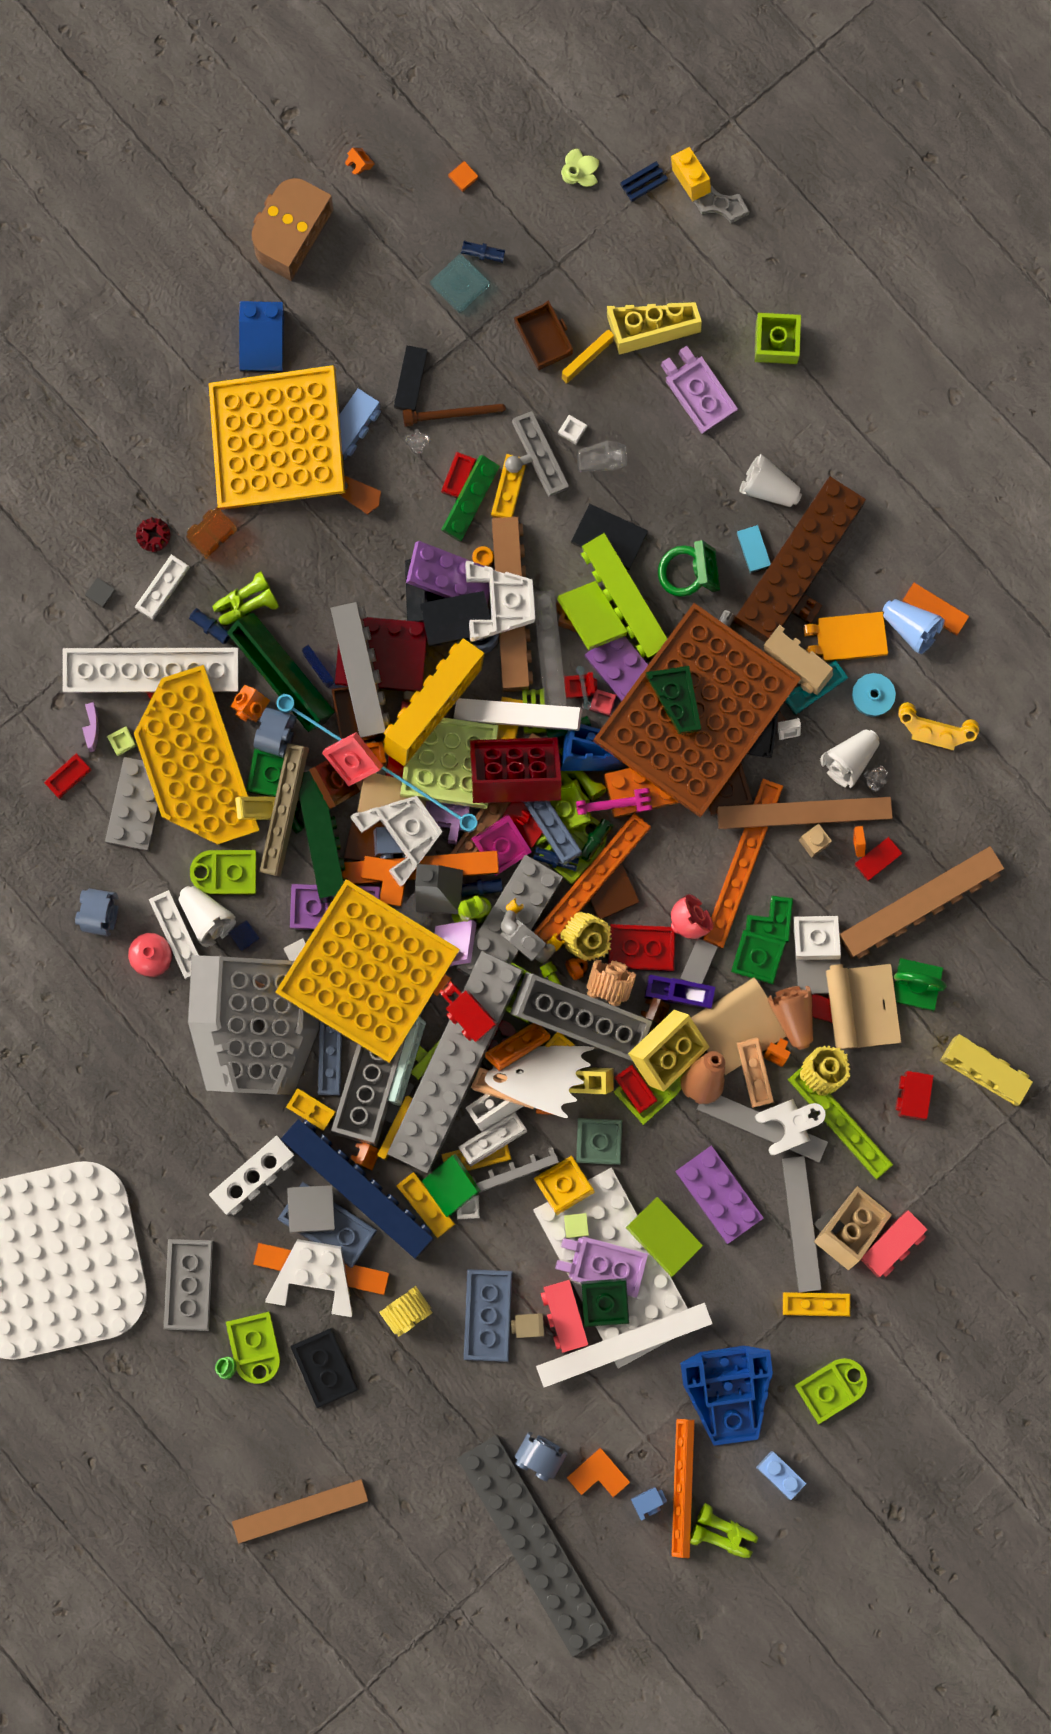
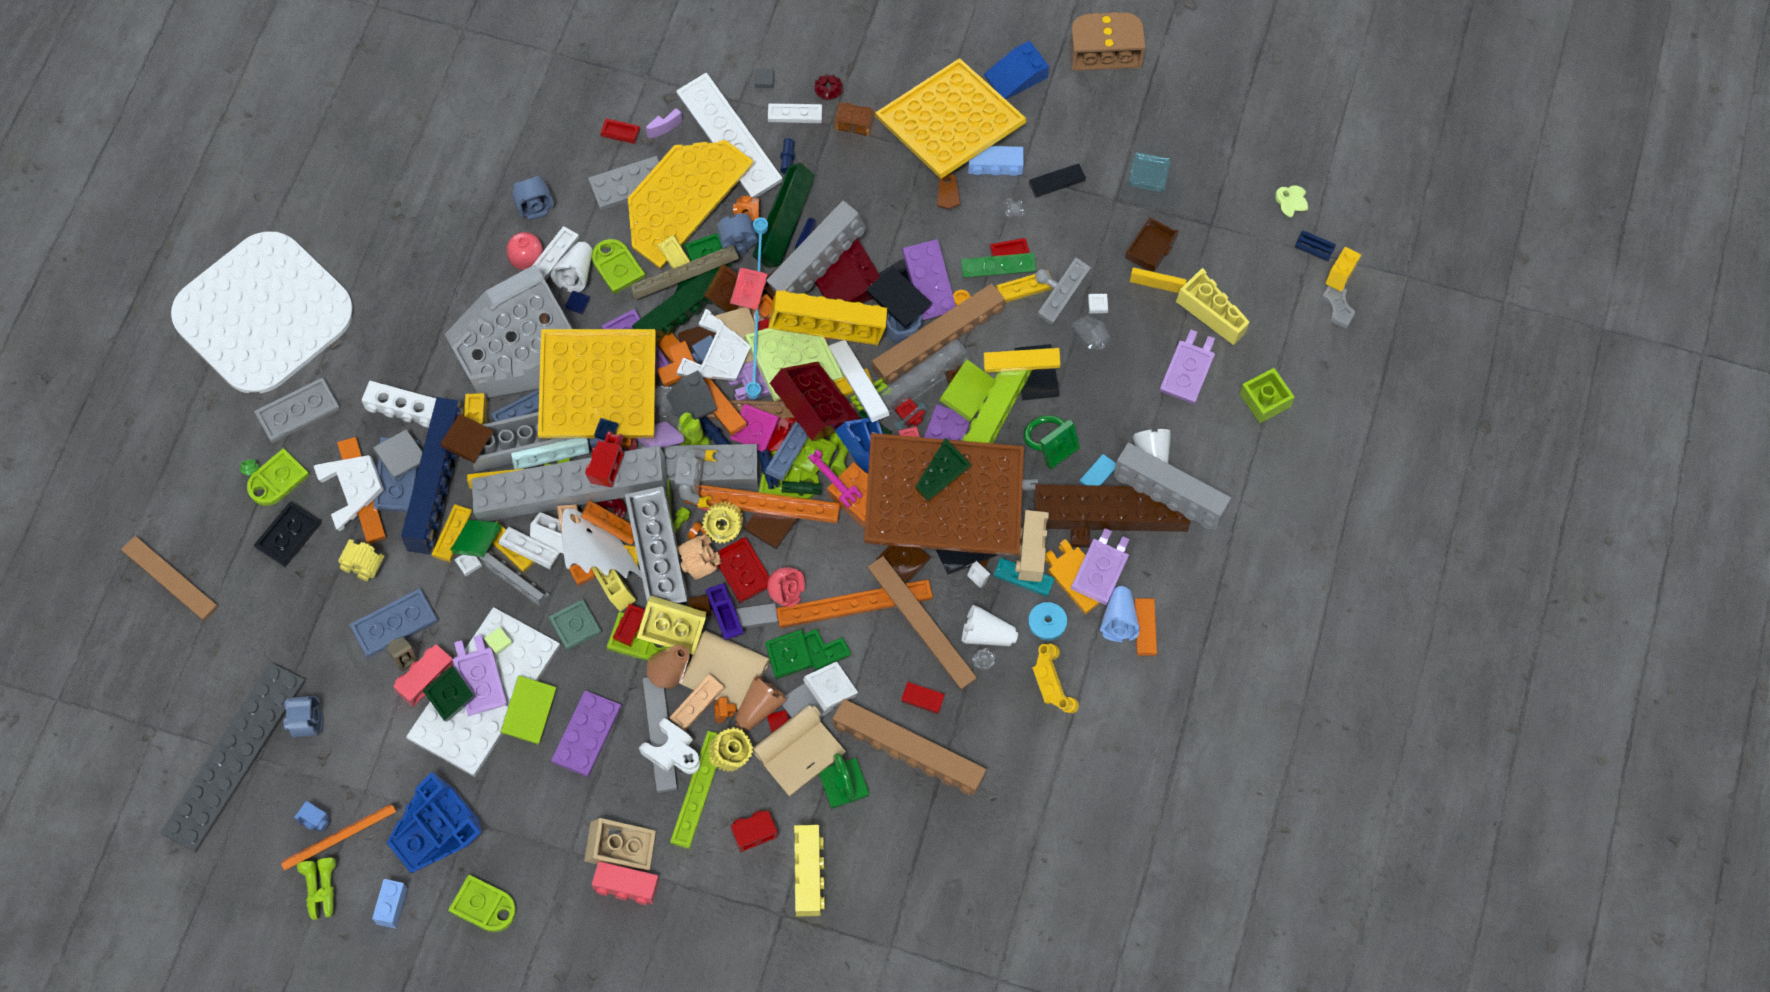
camera: 60 degrees right, 15 degrees down
(121, 741) = (664, 147): yellowish green tile -> none
(235, 600) = (814, 161): lime piece -> none
(348, 1134) = (466, 438): none -> reddish brown tile
(361, 159) = (1188, 60): orange tile -> none
(367, 1155) = (462, 469): orange tile -> none
(411, 417) = (1028, 195): reddish brown piece -> none
(427, 992) = (605, 426): none -> clear blue tile
(463, 176) = (1228, 131): orange tile -> none
(483, 251) = (1183, 172): dark blue pin -> none
(509, 598) = (935, 325): white wing -> none
(564, 1185) = (524, 617): yellow tile -> none
(599, 1468) = (320, 770): orange tile -> none
(600, 544) = (1022, 360): none -> yellow tile
(624, 1345) = (426, 728): white tile -> none
(801, 1224) = (600, 806): light grey tile -> none
(815, 840) = (905, 642): tan brick -> none
(816, 1304) = (543, 855): yellow tile -> none
(829, 494) = (1171, 487): none -> light grey brick
(854, 610) = (1101, 568): none -> lavender tile
(859, 841) = (925, 673): orange tile -> none

